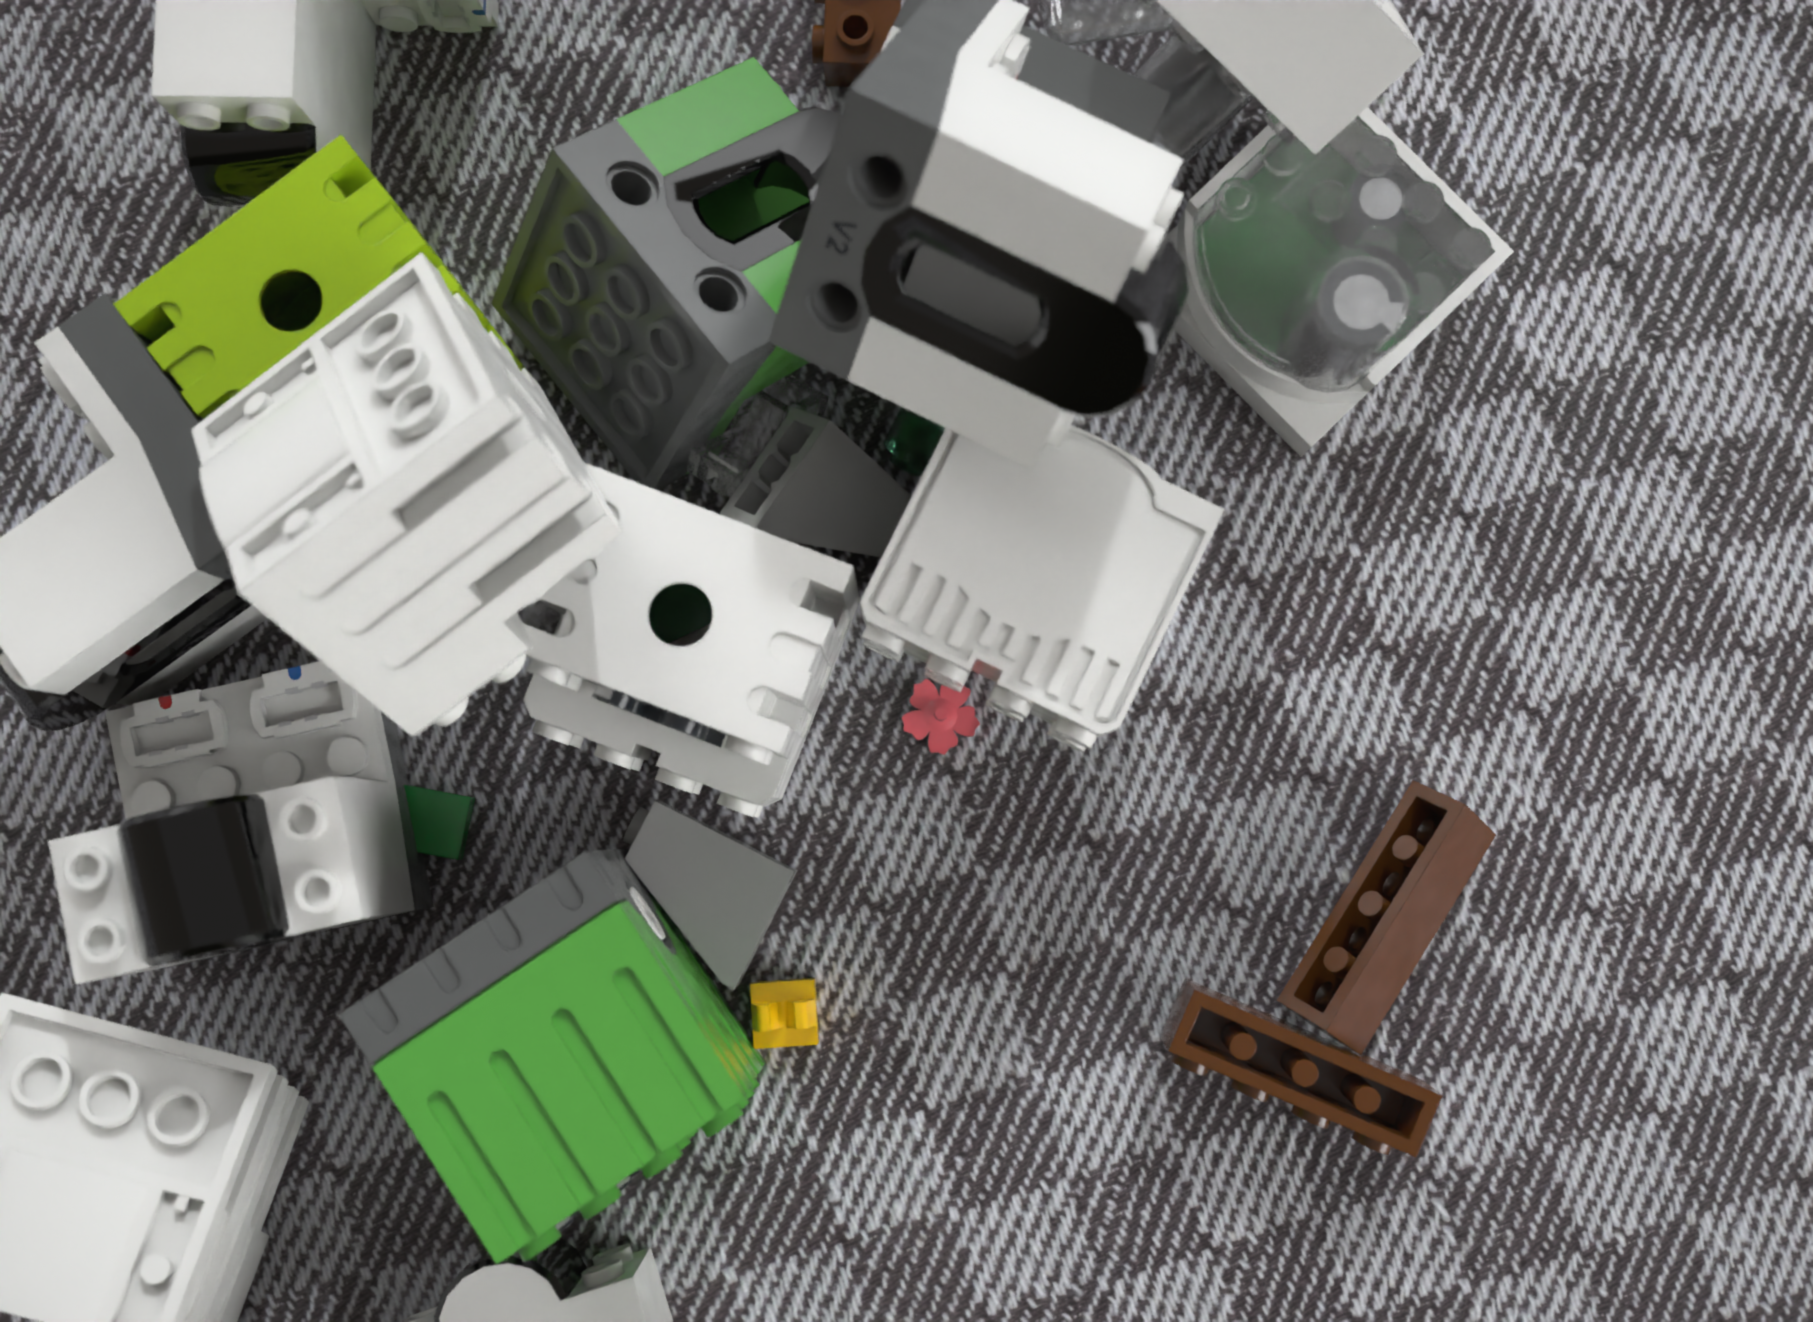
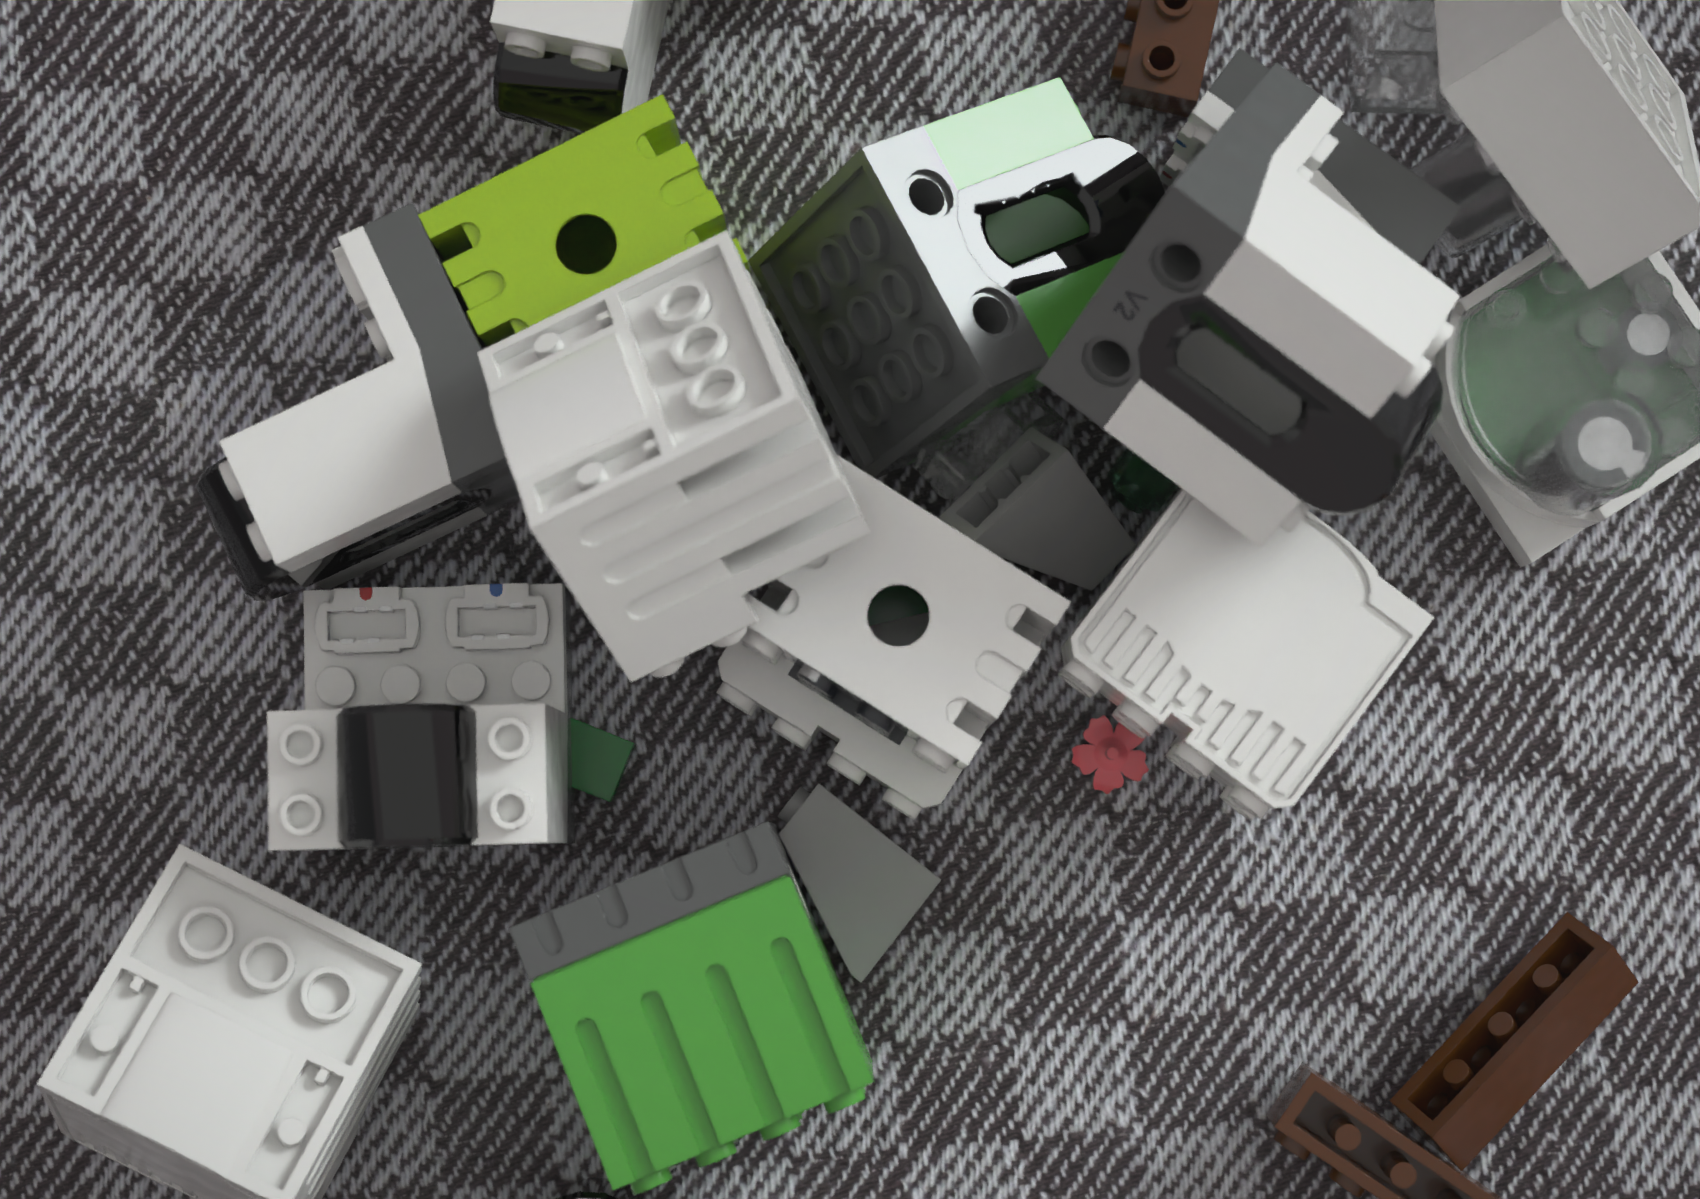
camera: 15 degrees right, 0 degrees up
(784, 1013) = (901, 1016): yellow tile -> none

